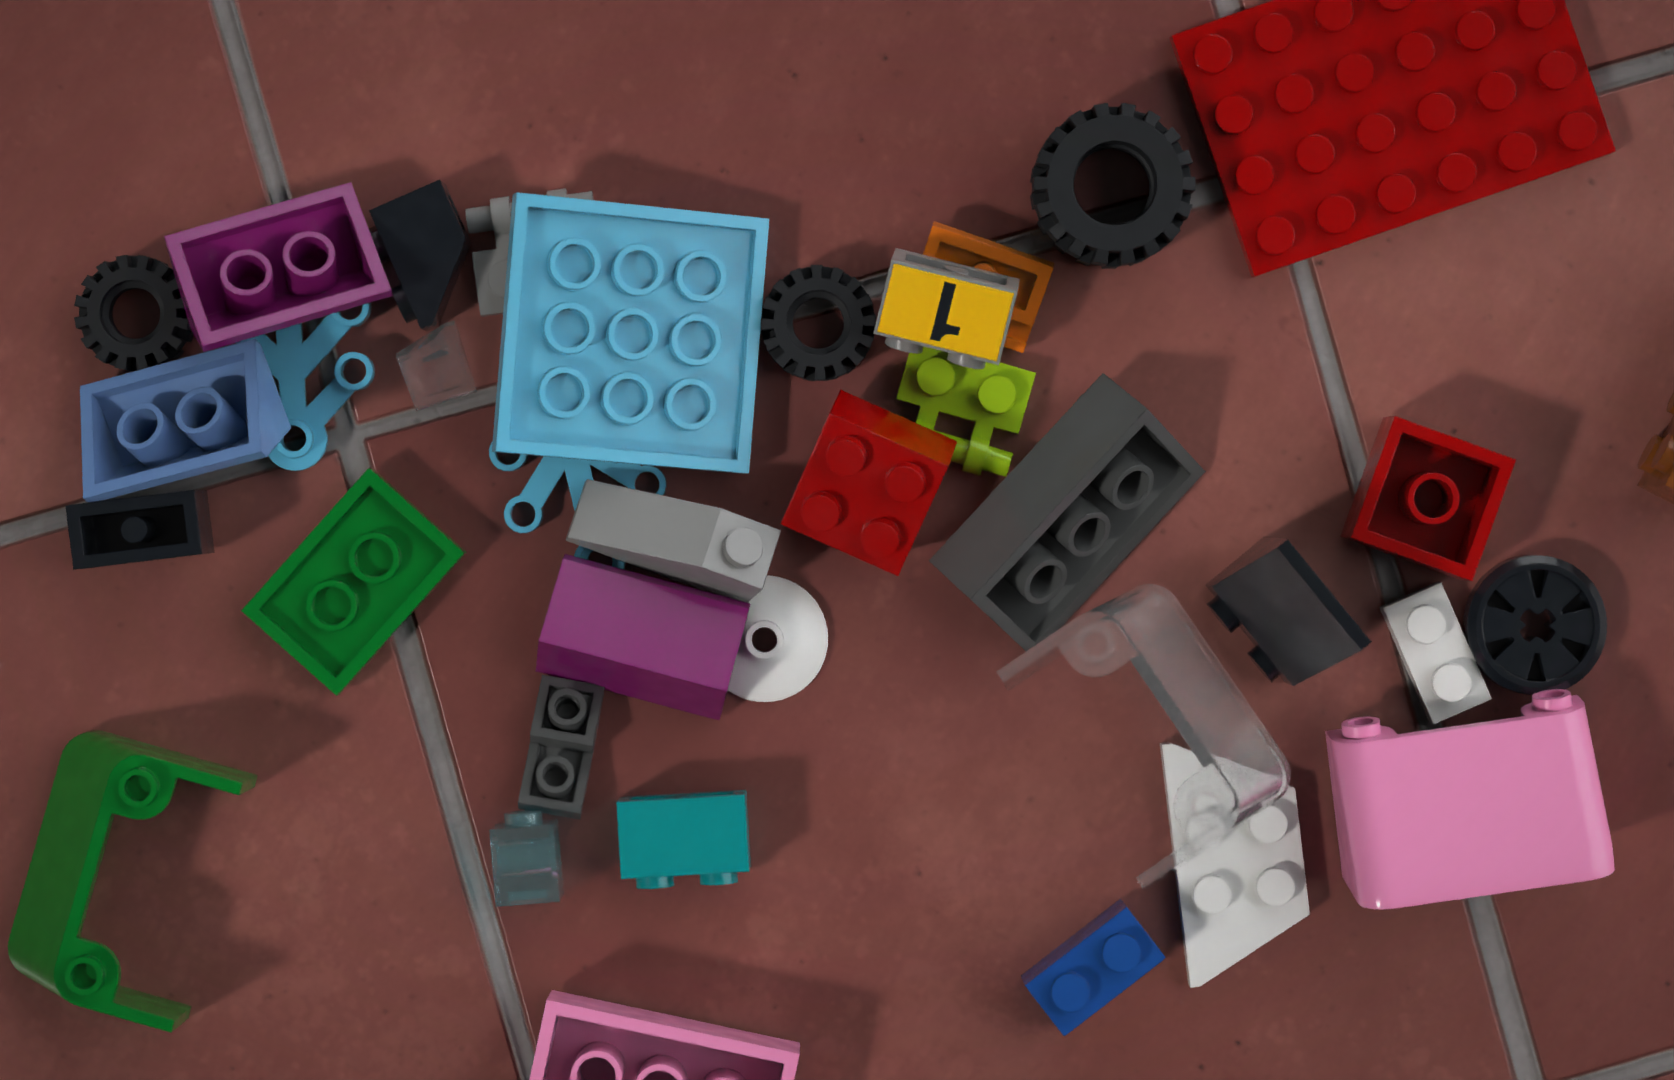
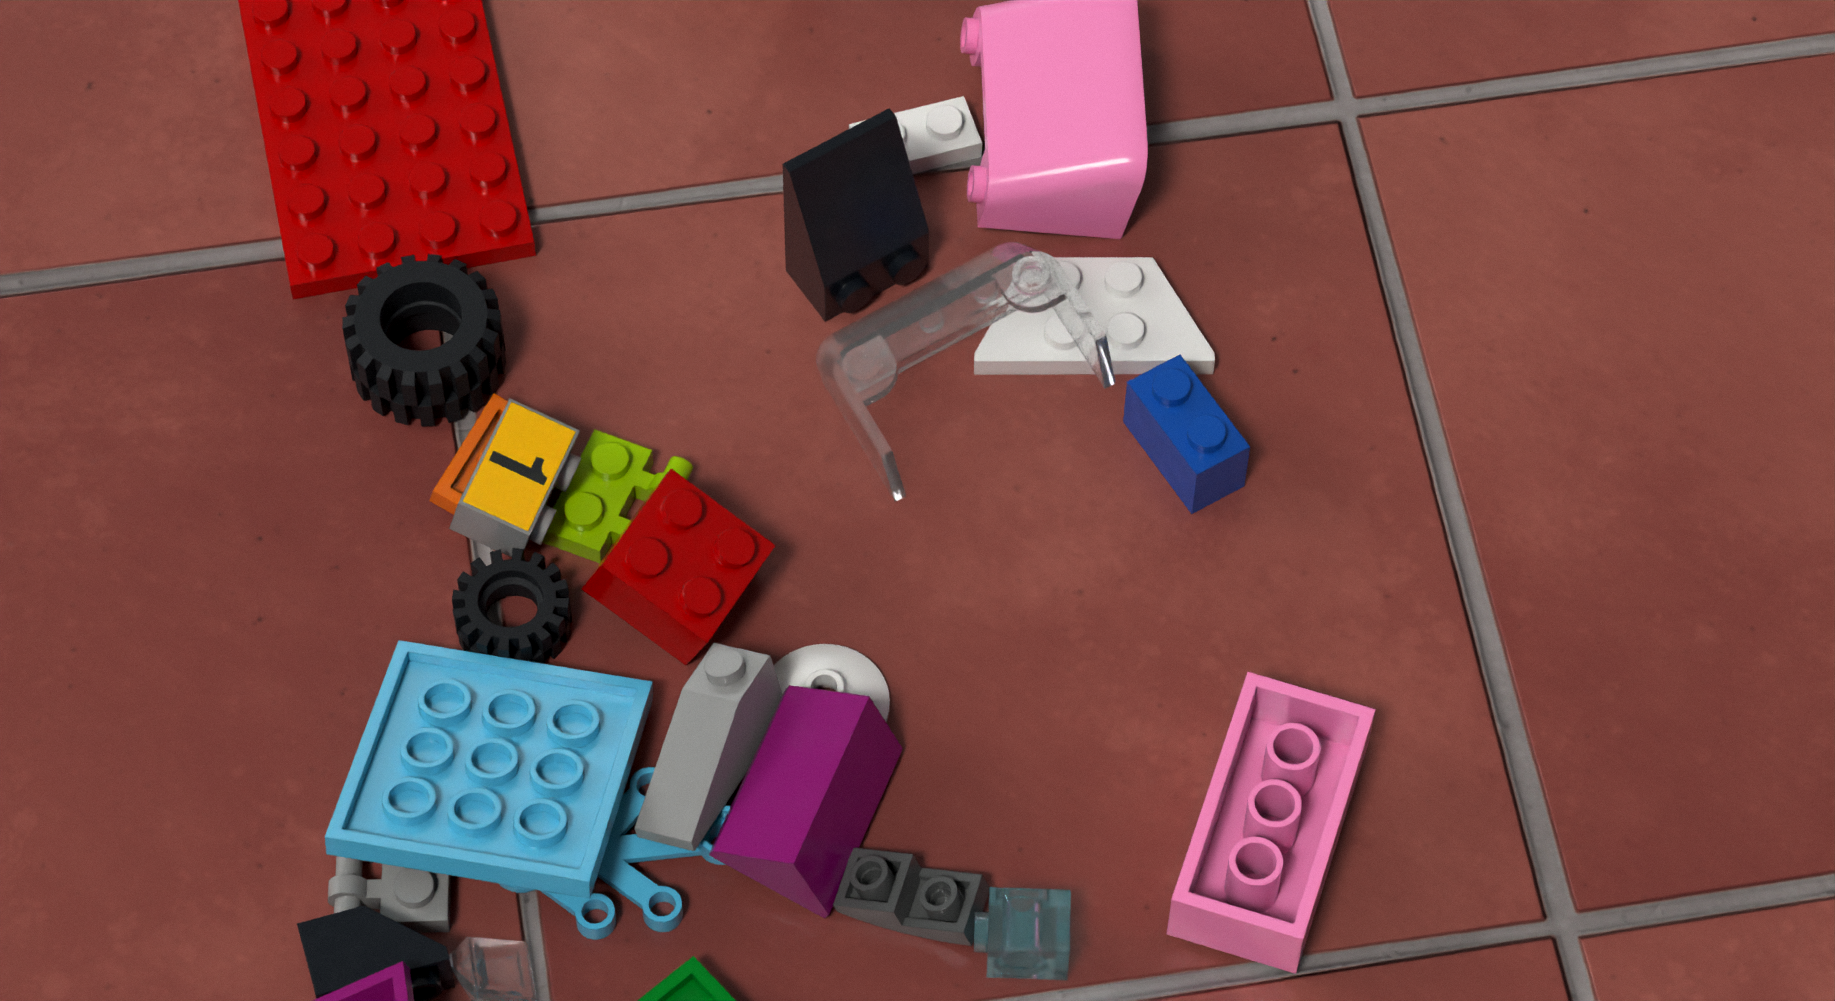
camera: 80 degrees left, 30 degrees down
(683, 836) = (1016, 783): teal brick -> none
(1068, 513) = (736, 415): dark grey slope -> none
(1428, 498) = (763, 111): red brick -> none
(1535, 585) = (900, 30): black wheel -> none

